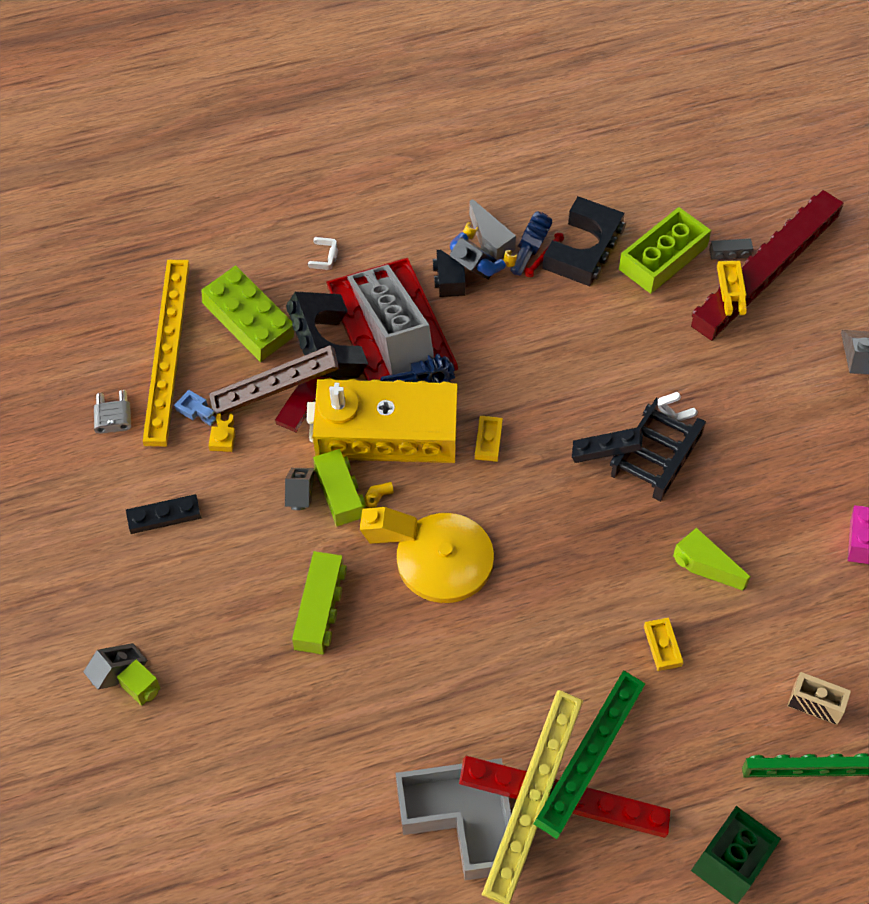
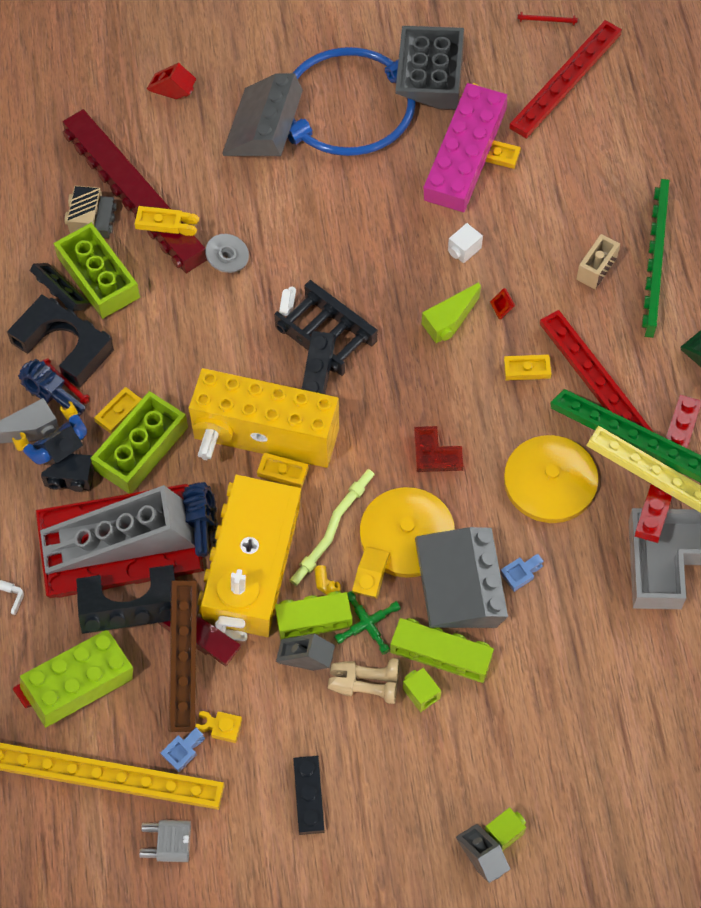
camera: 80 degrees left, 5 degrees up
(275, 589) = (421, 689): none -> lime brick
(277, 529) = (351, 672): none -> tan piece
(341, 536) = (367, 622): none -> green piece
(394, 604) = (461, 579): none -> dark grey slope
(417, 664) = (520, 573): none -> medium blue plate
(481, 504) = (309, 562): none -> yellowish green bar
(488, 317) = (139, 442): none -> lime brick
(522, 298) = (117, 410): none -> yellow plate
(524, 681) = (550, 479): none -> yellow dish
(531, 418) = (263, 418): none -> yellow piece
(533, 565) = (431, 456): none -> clear red plate
(646, 220) = (59, 286): none -> black plate
(665, 719) = (589, 368): none -> red plate
(721, 341) = (228, 246): none -> light grey dish
(732, 227) = (83, 207): none -> brick
(737, 611) = (502, 303): none -> red slope
(801, 561) = (465, 243): none -> white brick

